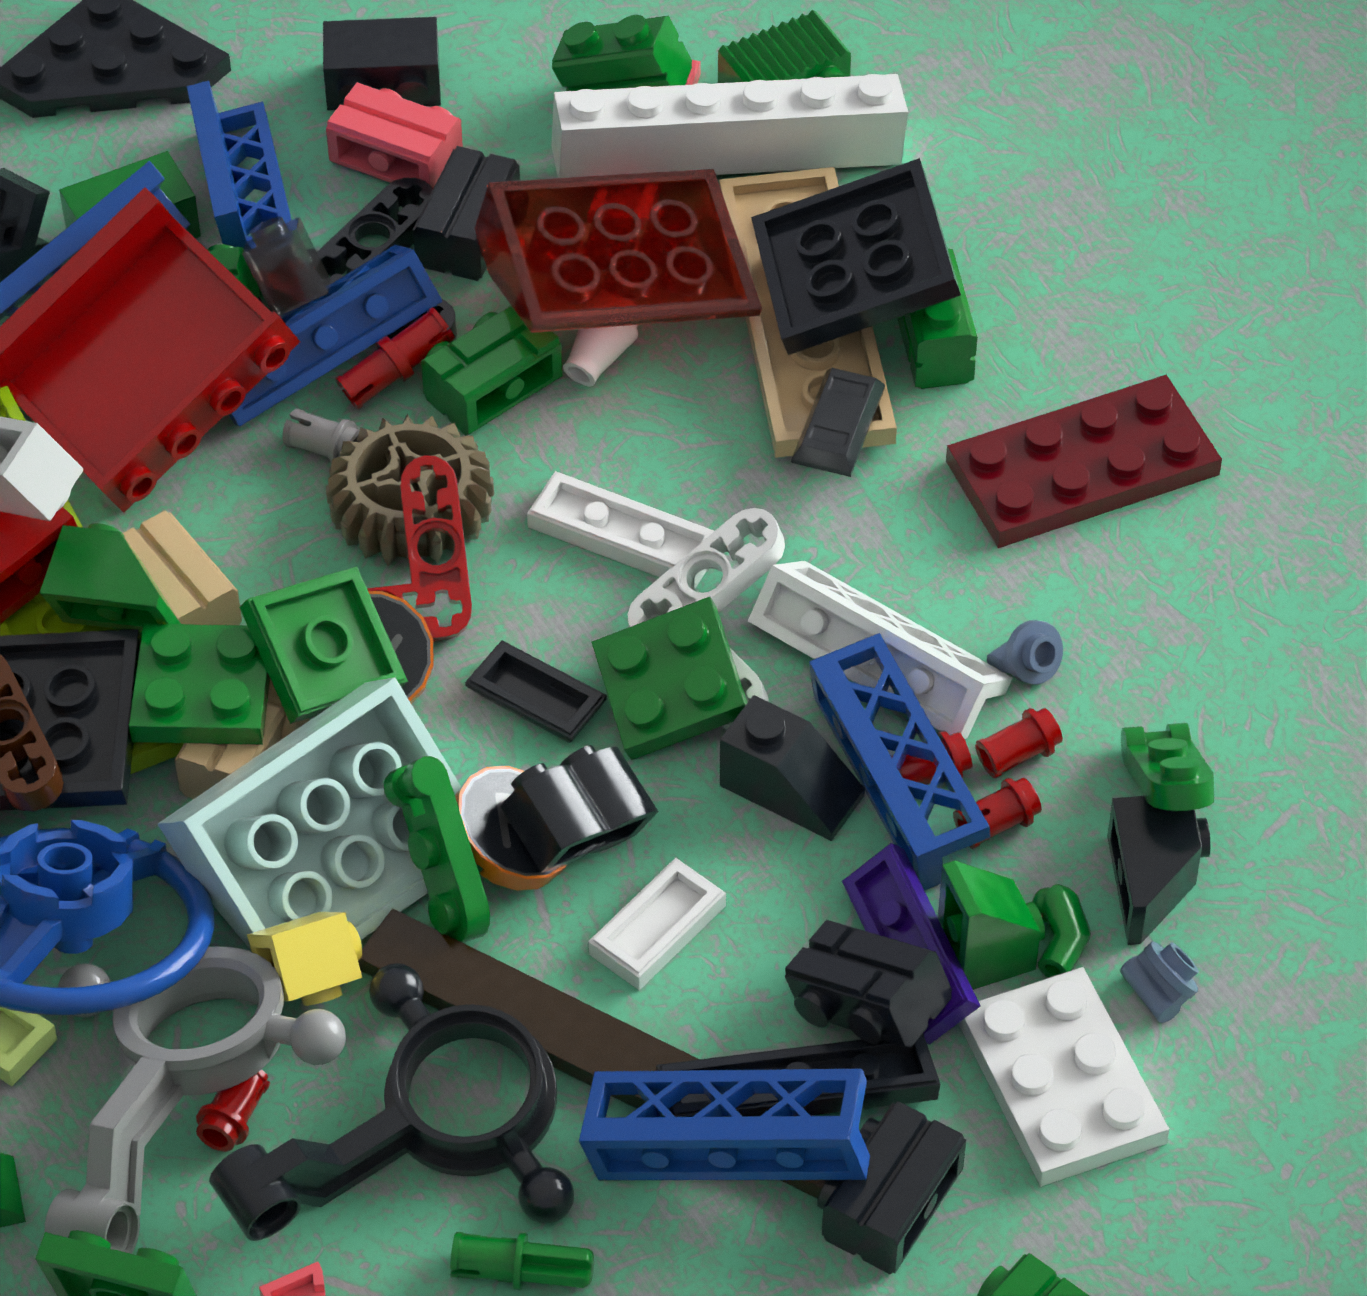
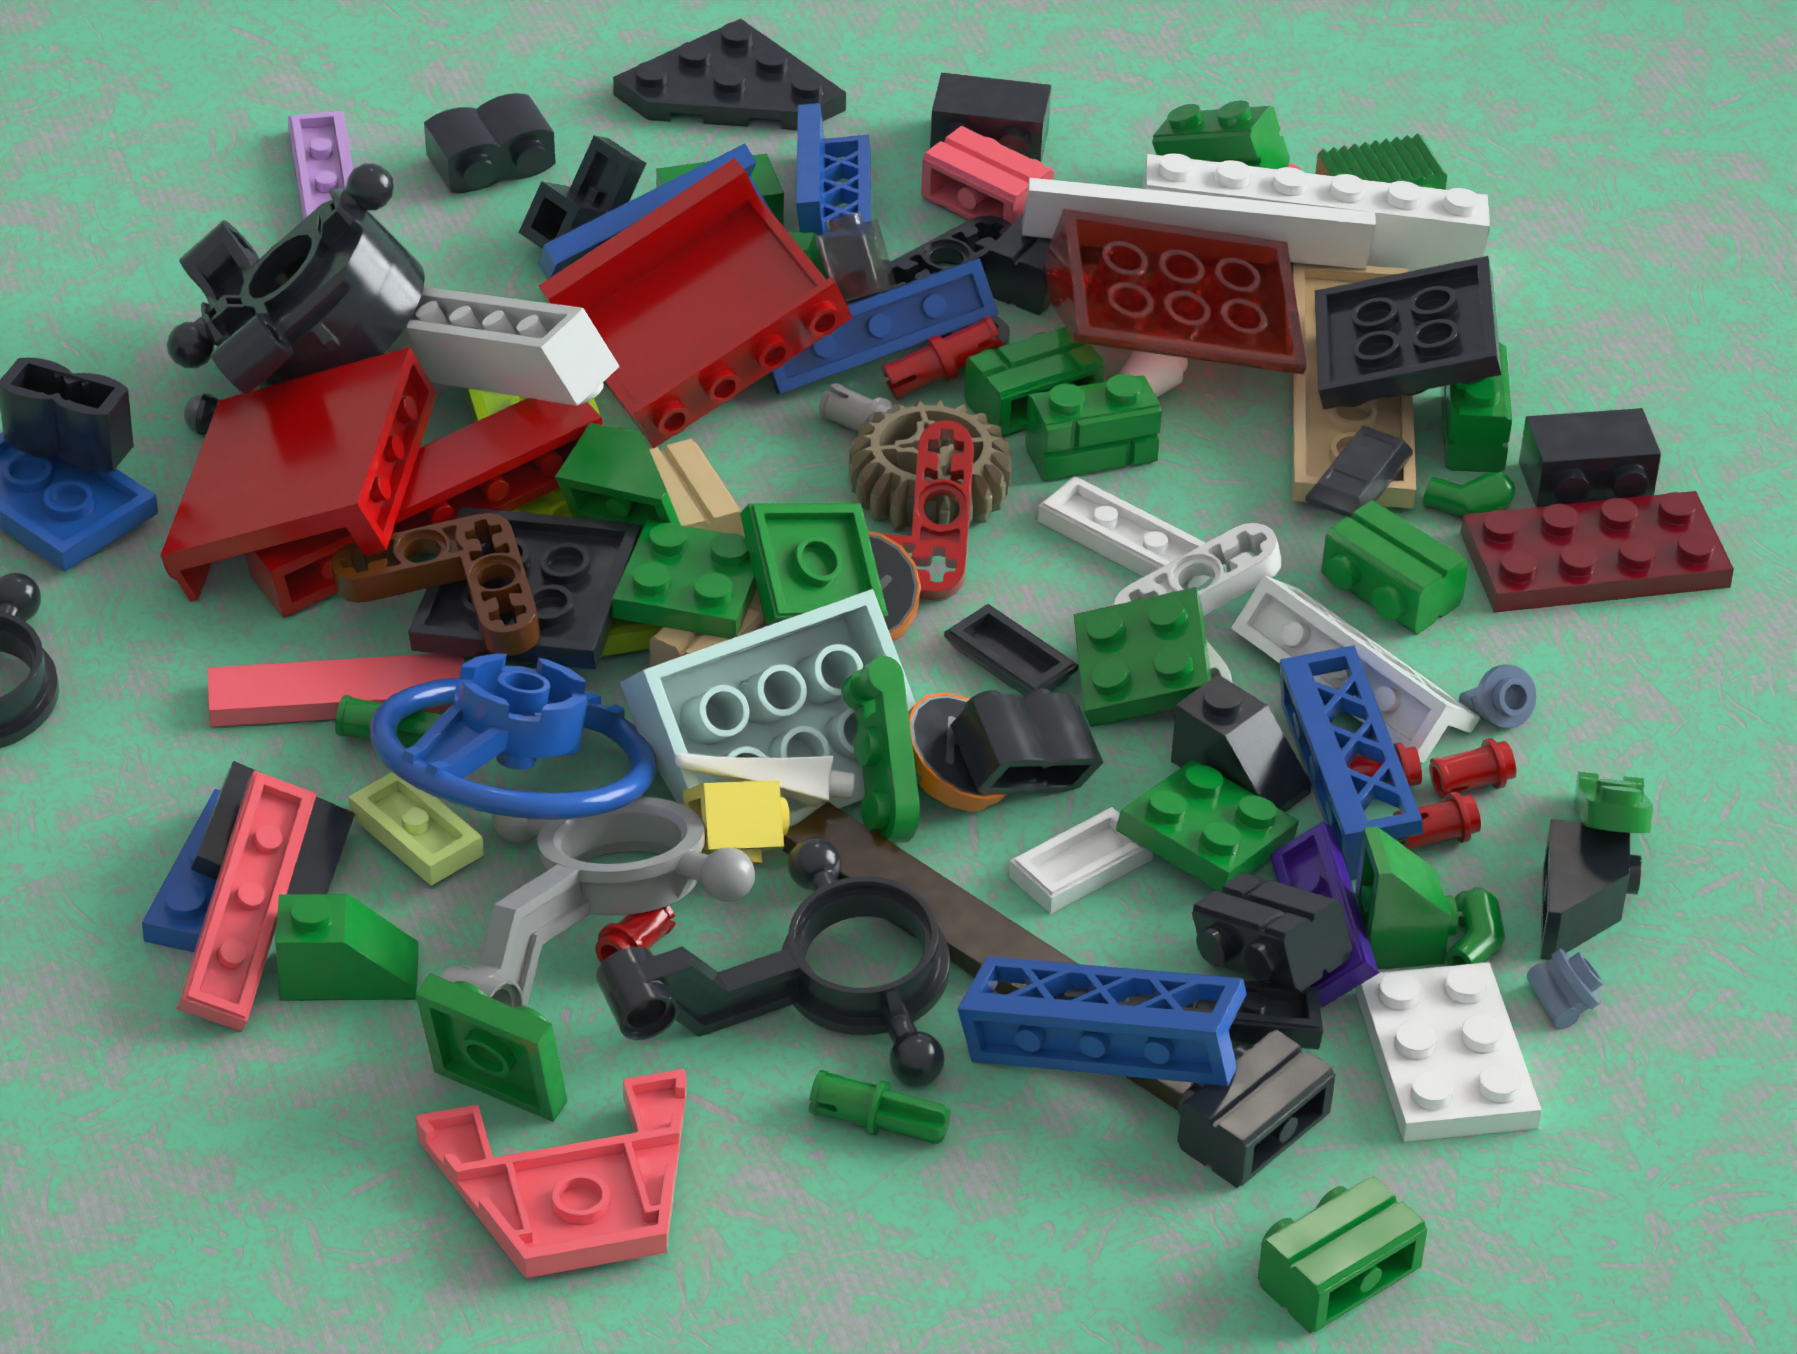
camera: 10 degrees right, 10 degrees down
(363, 893) = (799, 777): none -> white piece
(563, 414) = (1093, 426): none -> green brick
(732, 152) = (1311, 232): none -> white tile
(774, 862) = (1206, 824): none -> green plate
(893, 522) = (1394, 567): none -> green brick
(953, 423) = (1480, 495): none -> green arm
(1056, 357) = (1589, 456): none -> black brick

